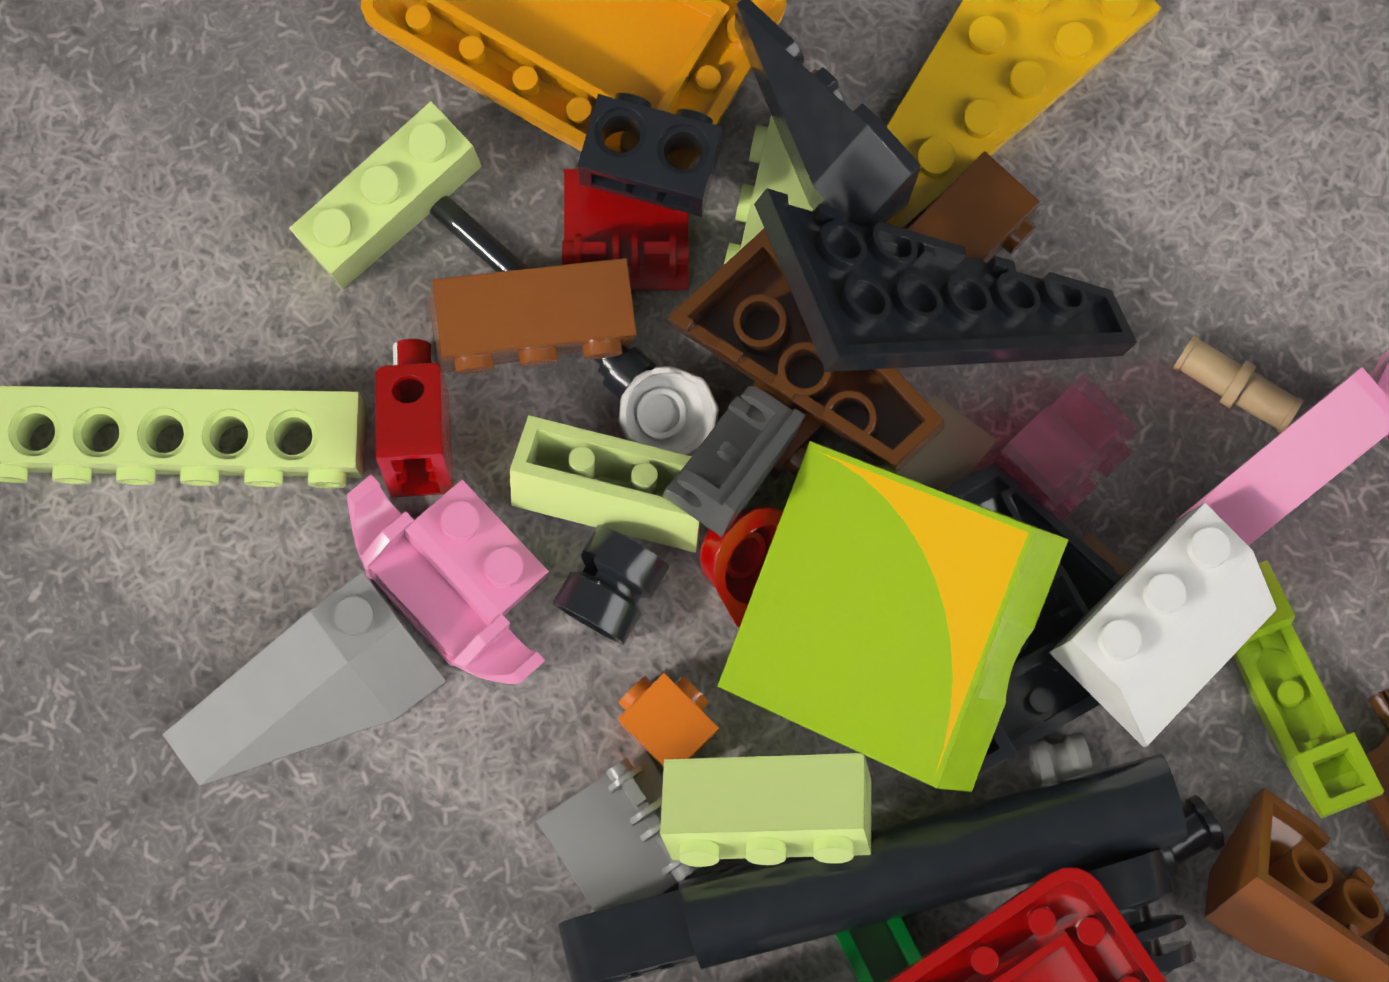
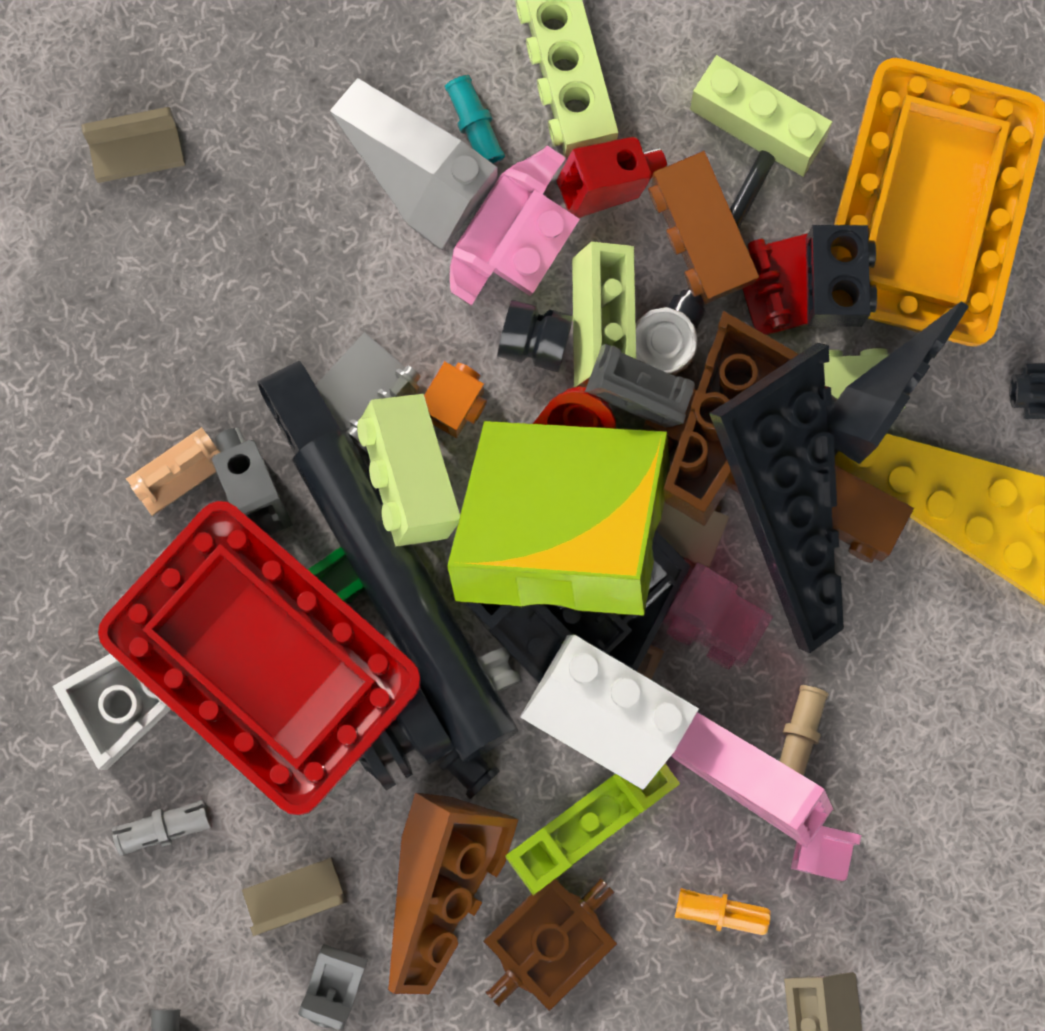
camera: 70 degrees right, 0 degrees up
(275, 586) = (474, 119): none -> teal pin

